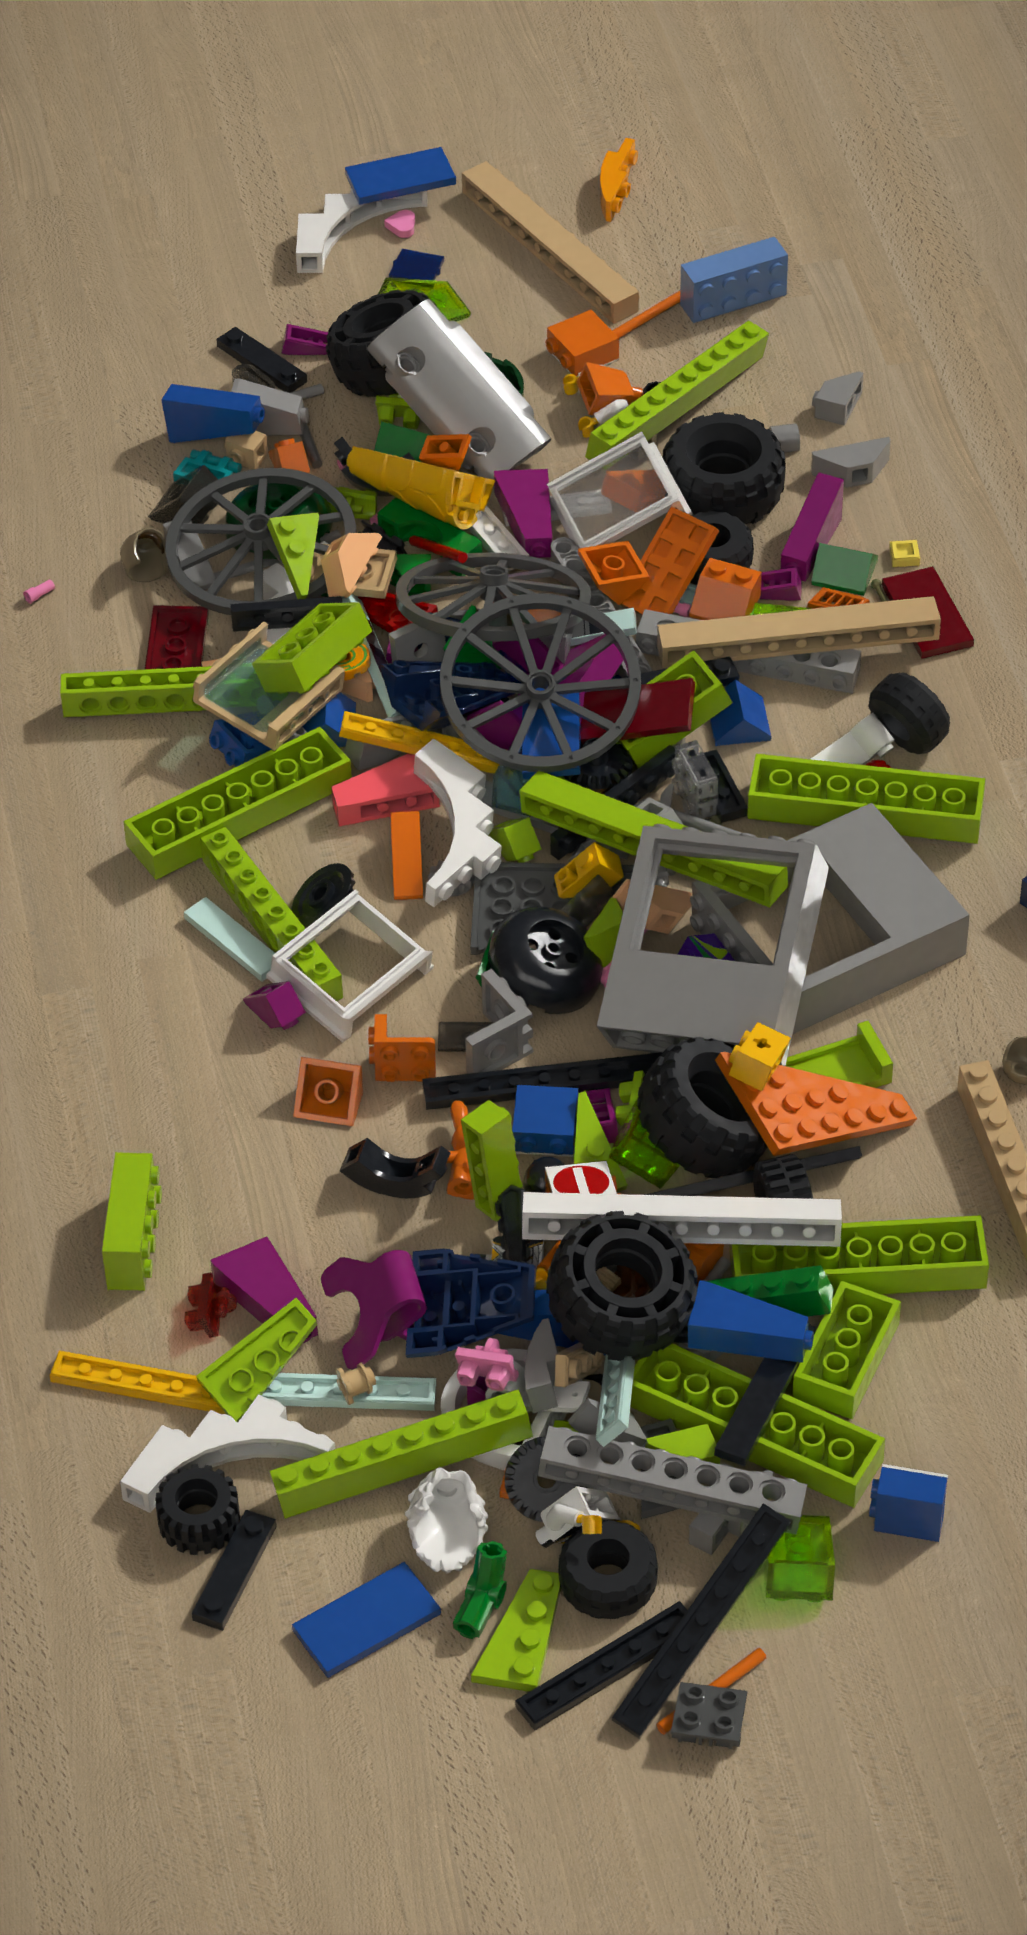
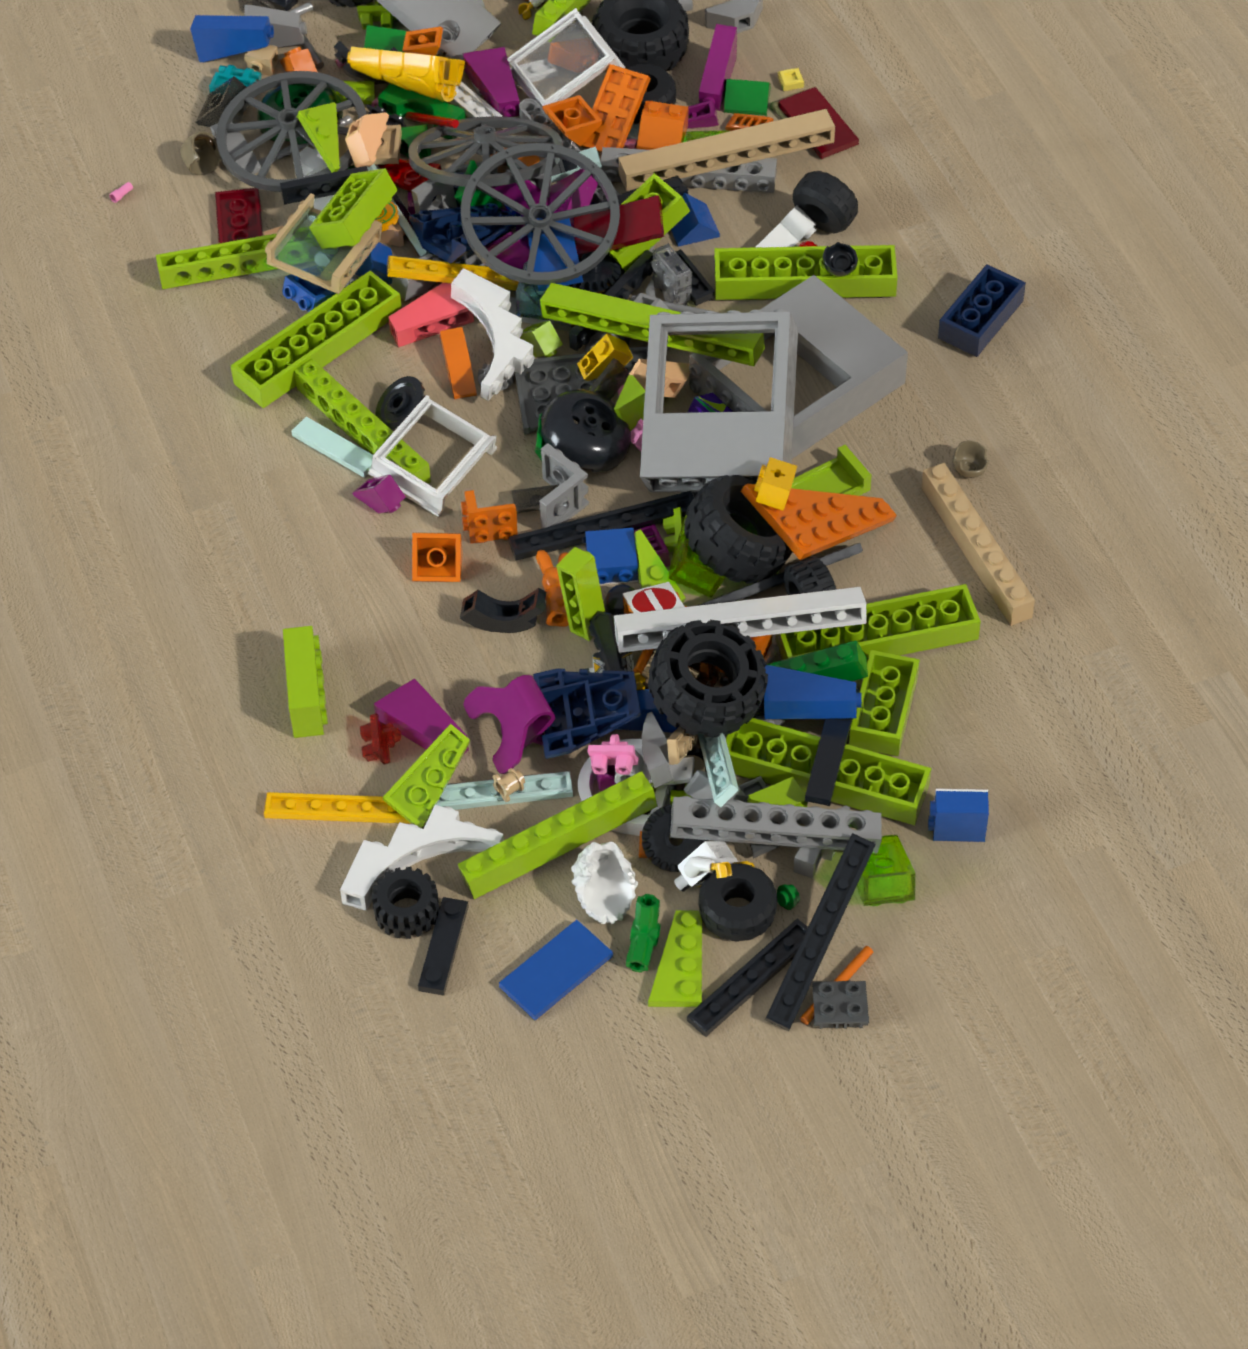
camera: 10 degrees left, 5 degrees up
(673, 1572) = (788, 896): none -> green plate
(909, 787) = (840, 259): none -> black hair

